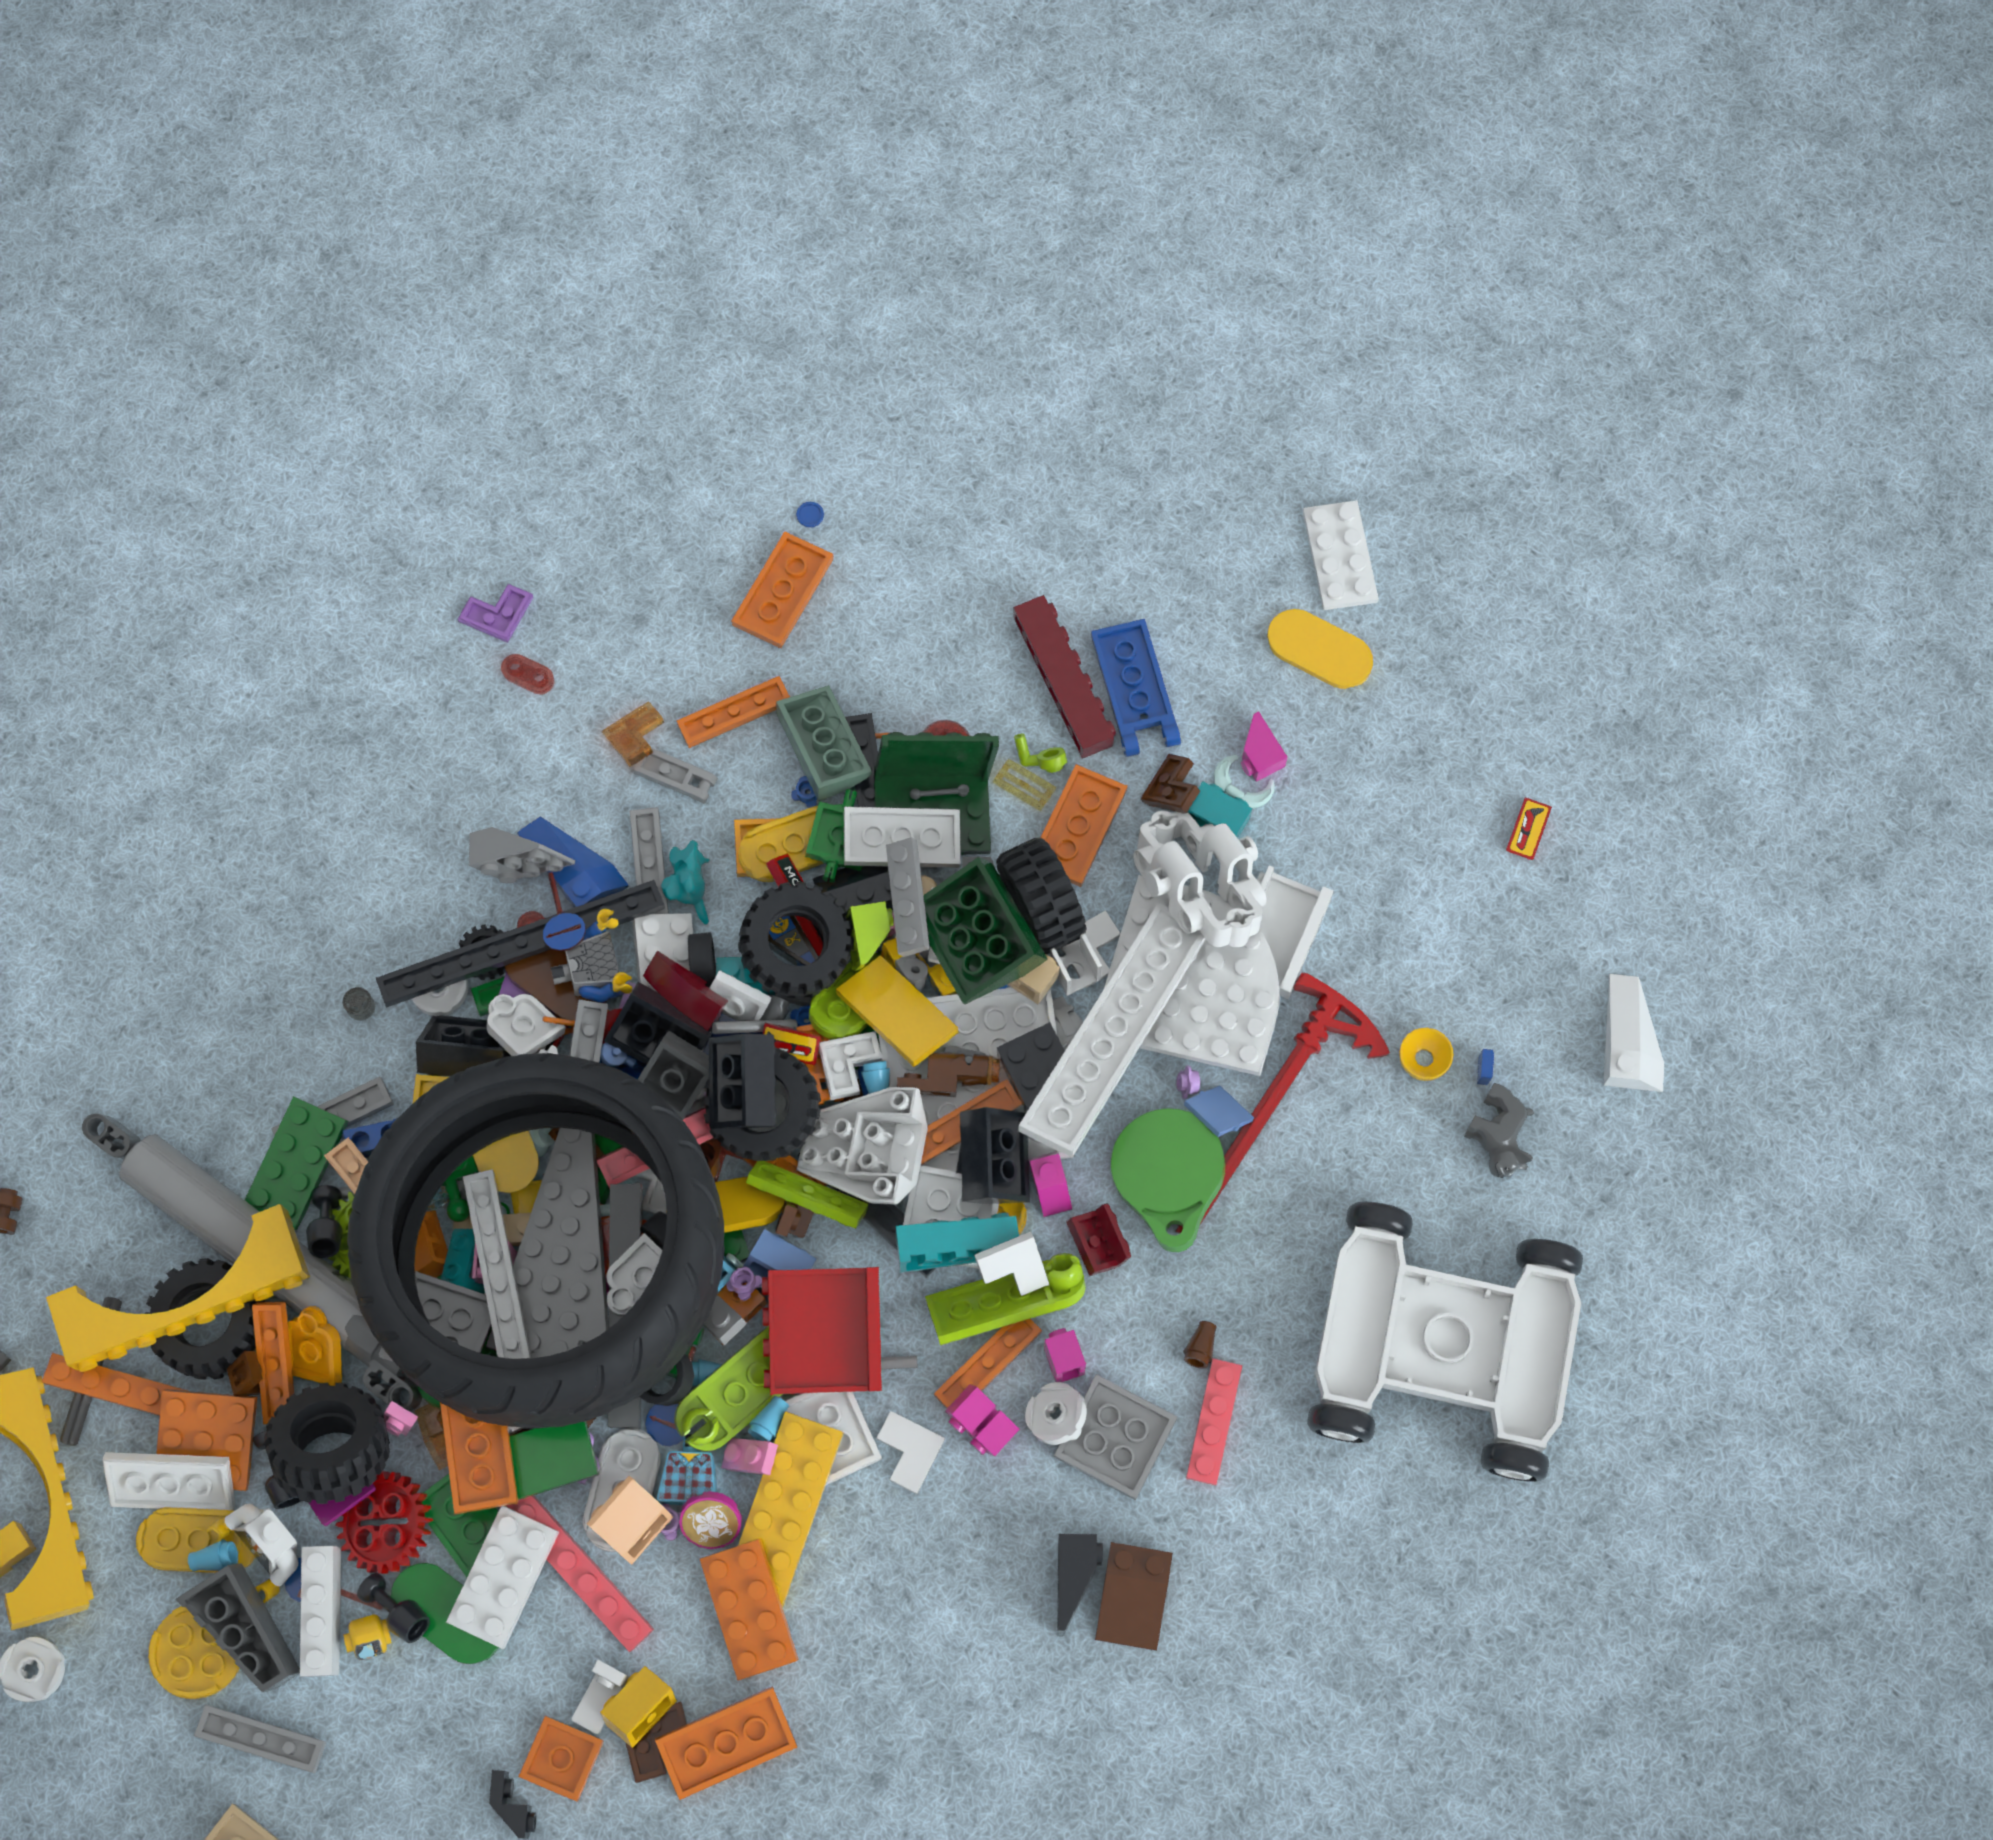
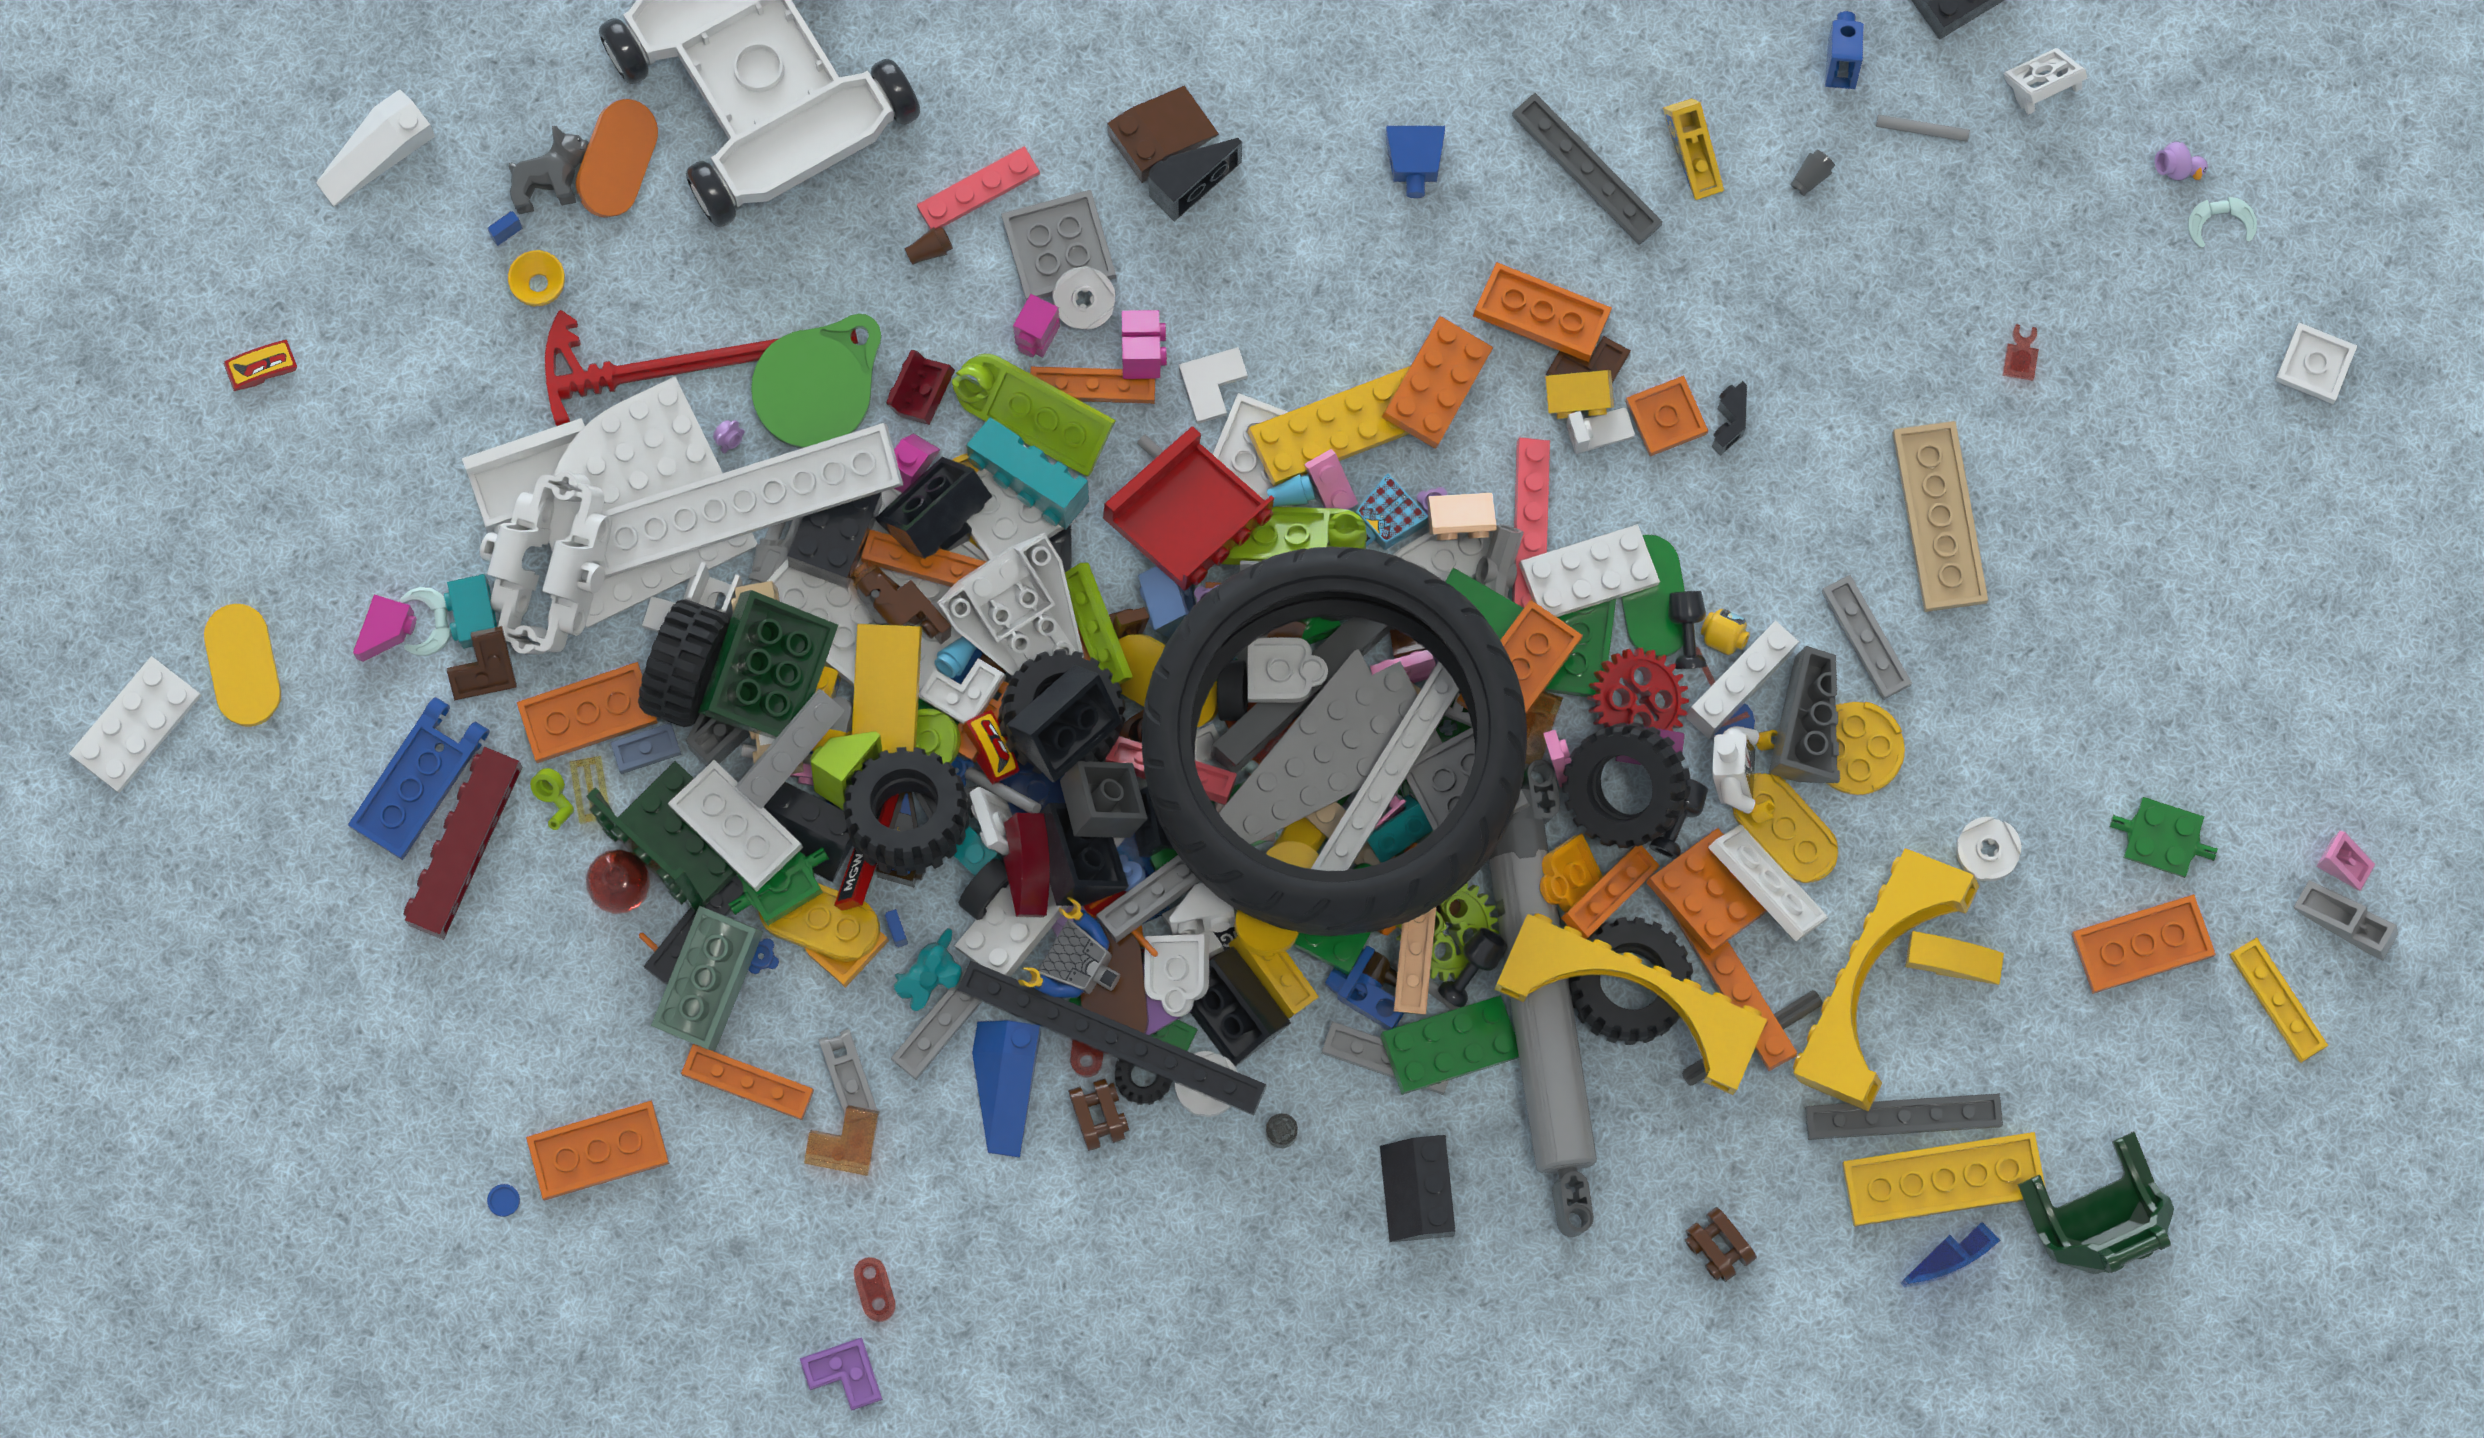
camera: 135 degrees left, 5 degrees up
(214, 1556) = (1784, 793): medium azure cone -> none
(230, 1053) = (1417, 1189): none -> black slope
(245, 1374) = (1640, 901): reddish brown bracket -> none
(496, 914) = (1114, 1124): none -> reddish brown brick
(512, 856) = (1043, 1116): light grey slope -> none
(565, 929) = (1070, 1007): blue piece -> none
(571, 1515) = (1498, 567): none -> light grey piece
(710, 1520) = (1403, 466): tile -> none
(737, 885) = (896, 928): none -> blue tile
(936, 1767) = (1415, 155): none -> blue torso
(962, 791) = (645, 827): dark grey hinge -> none
(1016, 1257) = (998, 411): white tile -> none
(1020, 829) = (645, 748): none -> sand blue plate
(1218, 1111) = (732, 388): medium blue piece -> none
(1470, 1186) = (616, 158): none -> orange tile

